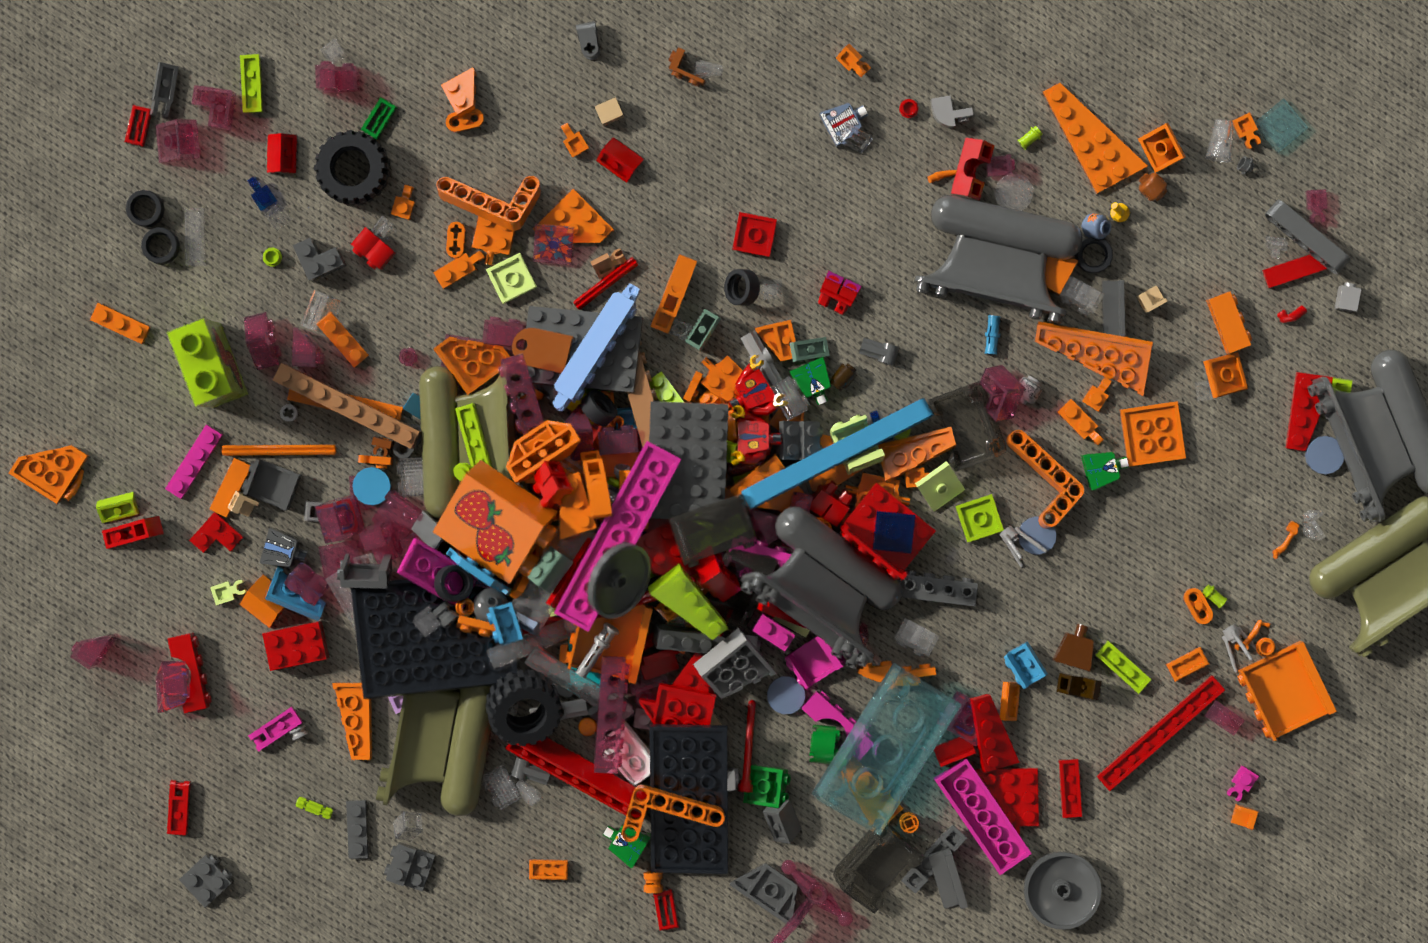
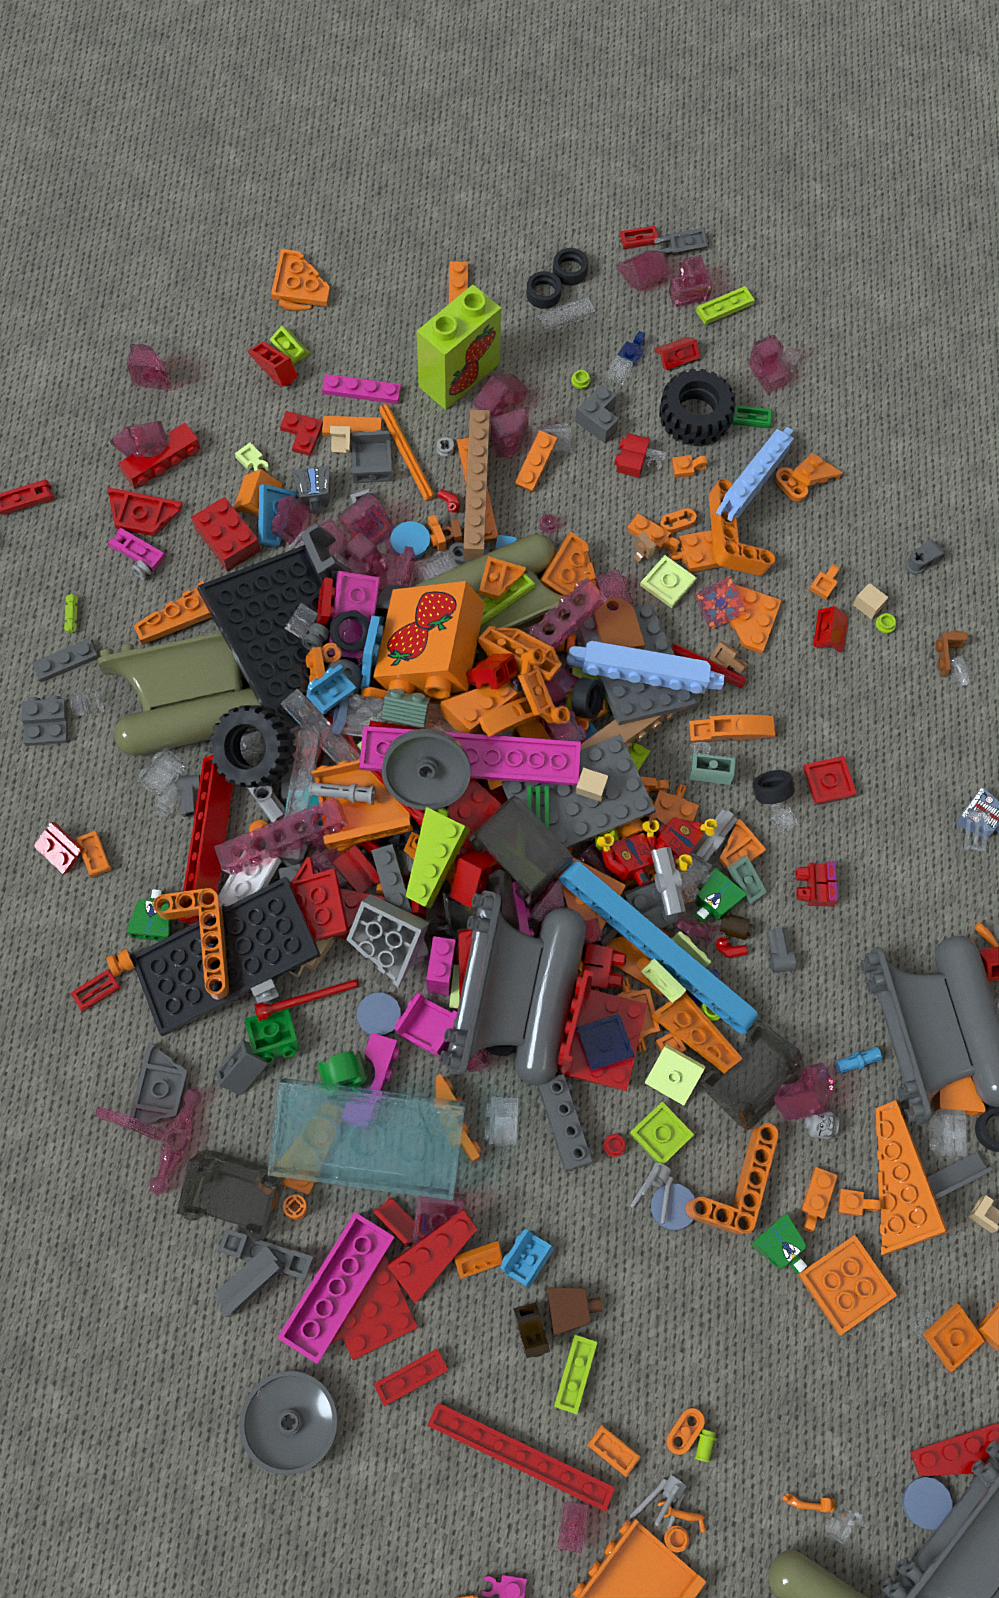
camera: 65 degrees right, 20 degrees down
(238, 711) = (141, 512): none -> red wing
(346, 431) = (451, 499): none -> red arm
(411, 590) = (325, 609): none -> red plate
(447, 151) = (756, 474): none -> light blue hinge
(456, 433) = (499, 577): none -> orange wing
(473, 287) = (644, 546): none -> medium nougat plate
(531, 895) = (59, 847): none -> plate
(584, 455) = (536, 689): none -> orange plate
(634, 108) = (886, 623): none -> lime plate
(683, 507) = (538, 790): none -> green tile
(686, 448) = (591, 784): none -> tan panel
(789, 421) = (668, 881): none -> light grey piece
(832, 413) = (695, 929): none -> clear pink plate
(858, 392) = (728, 950): none -> red arm
(971, 558) = (614, 1145): none -> red plate

